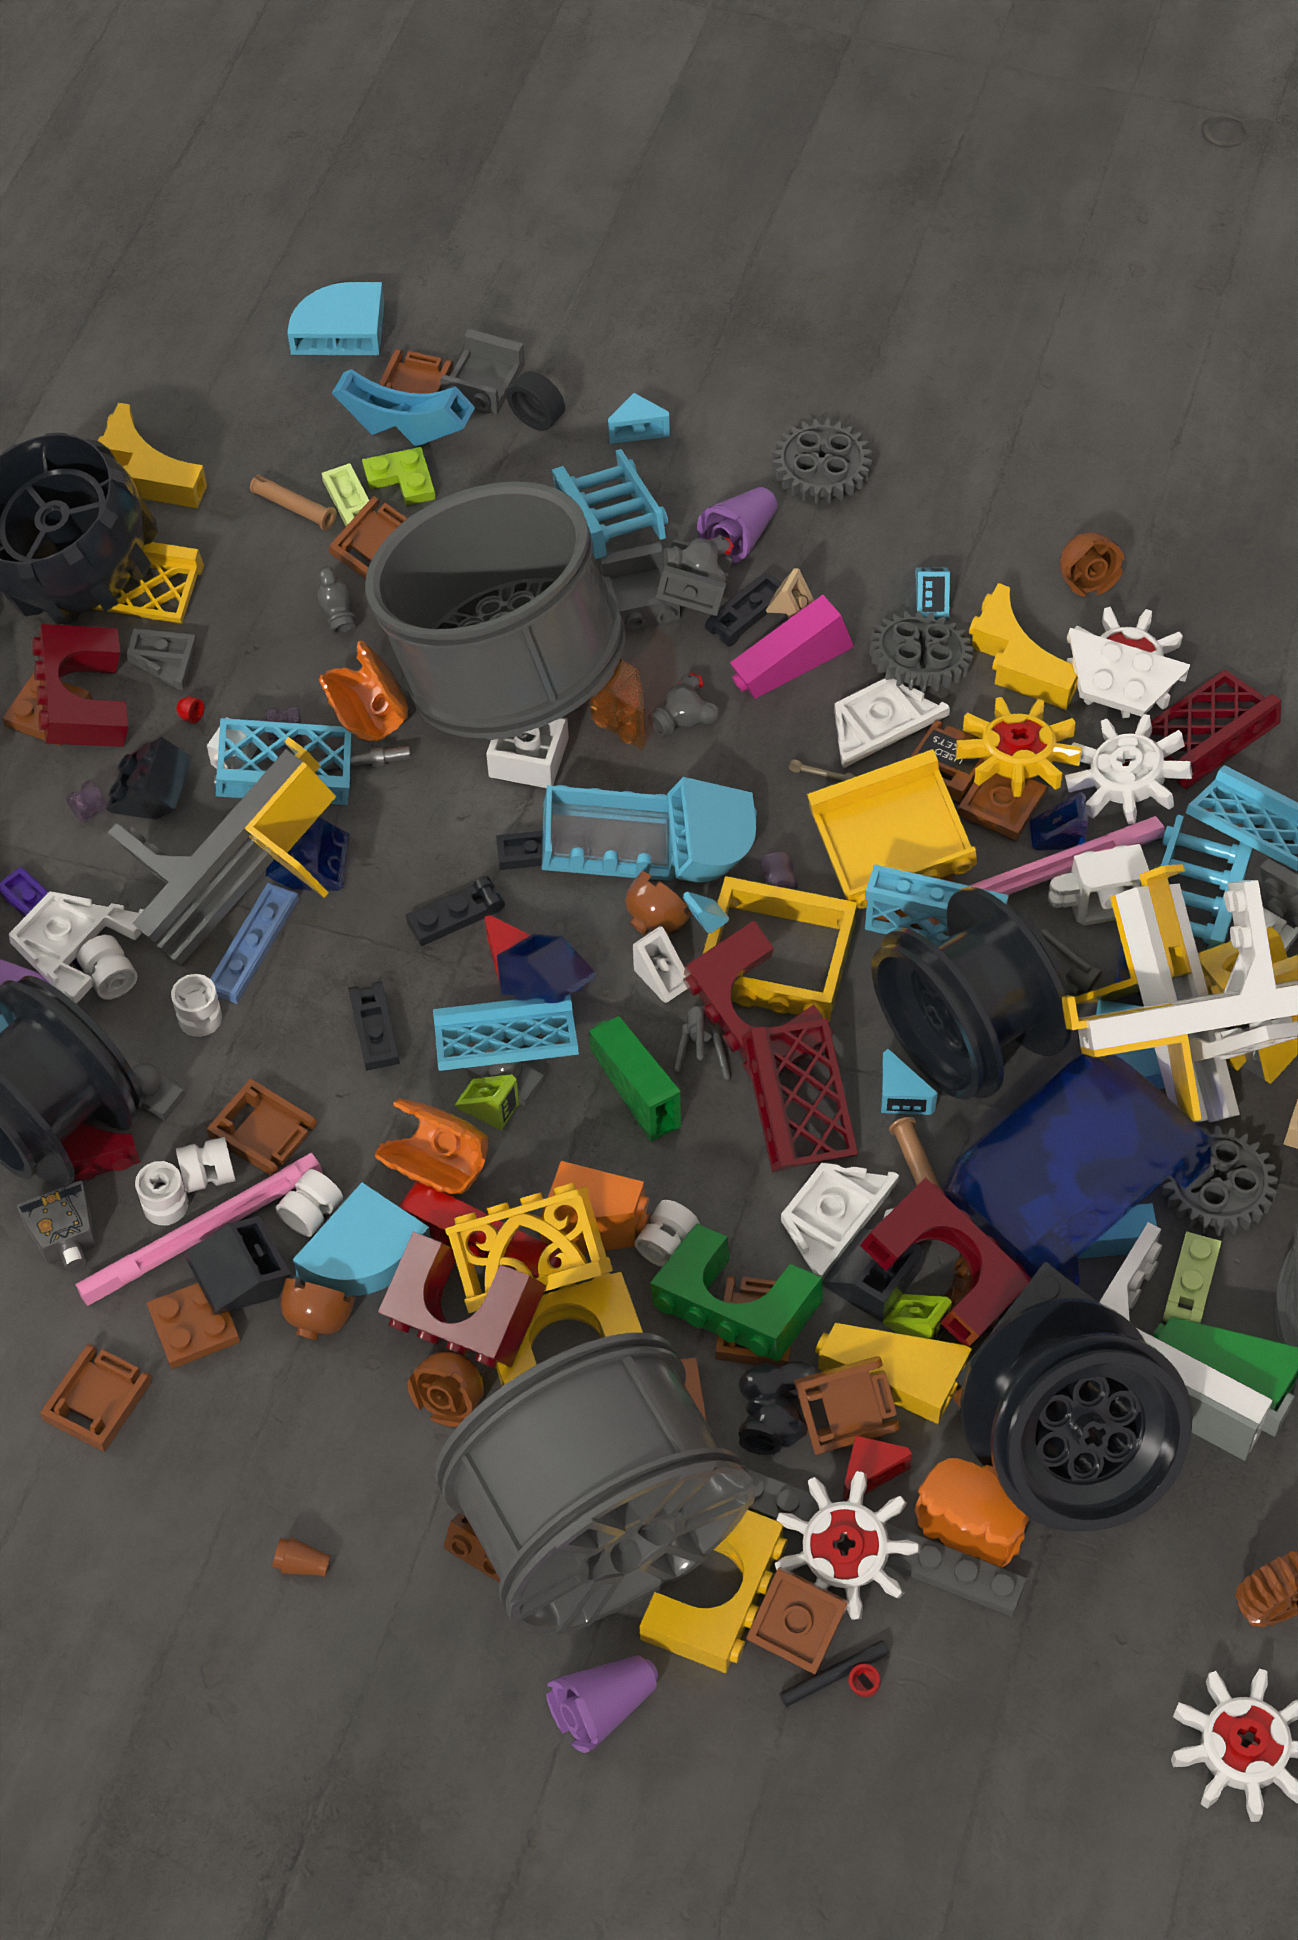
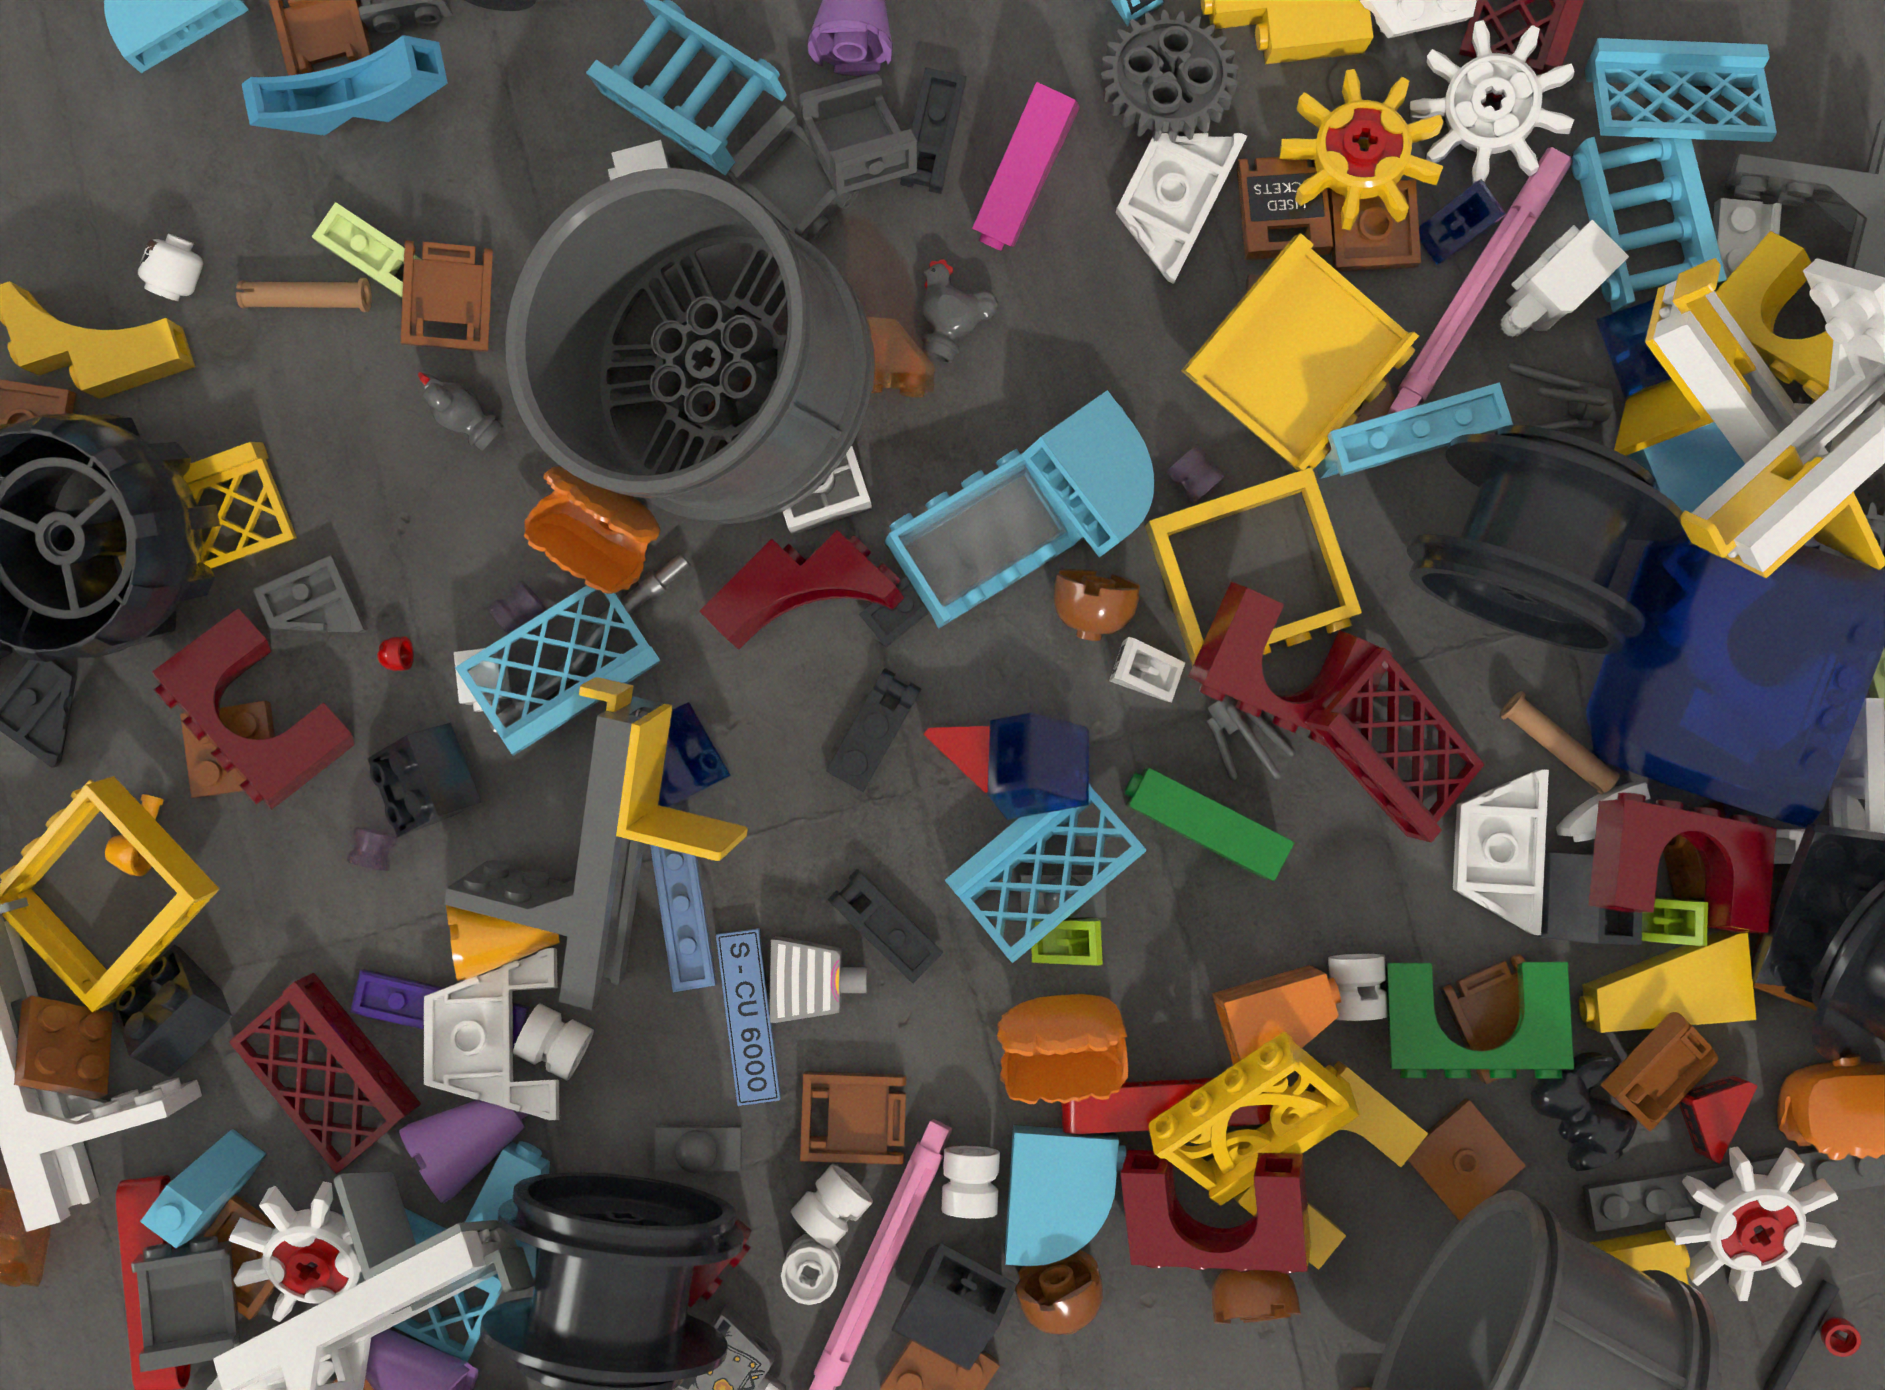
camera: 35 degrees left, 30 degrees up
(119, 879) = (487, 942): none -> light orange cone
(196, 1005) = (685, 1029): white wheel -> none
(226, 448) = (170, 267): none -> white head
(241, 1030) = (748, 1017): none -> medium blue tile
(297, 1025) = (809, 979): none -> light grey torso
(402, 468) = (399, 165): lime plate -> none
(463, 792) = (783, 580): none -> dark red arch
(700, 557) = (853, 109): dark grey animal -> none
(706, 911) = (1164, 583): medium azure slope -> none
(791, 595) = (987, 96): tan slope -> none
(797, 766) = (1186, 295): dark tan hinge -> none
(797, 1620) = (1755, 1321): dark orange plate -> none
(903, 1089) = (1484, 662): medium azure slope -> none

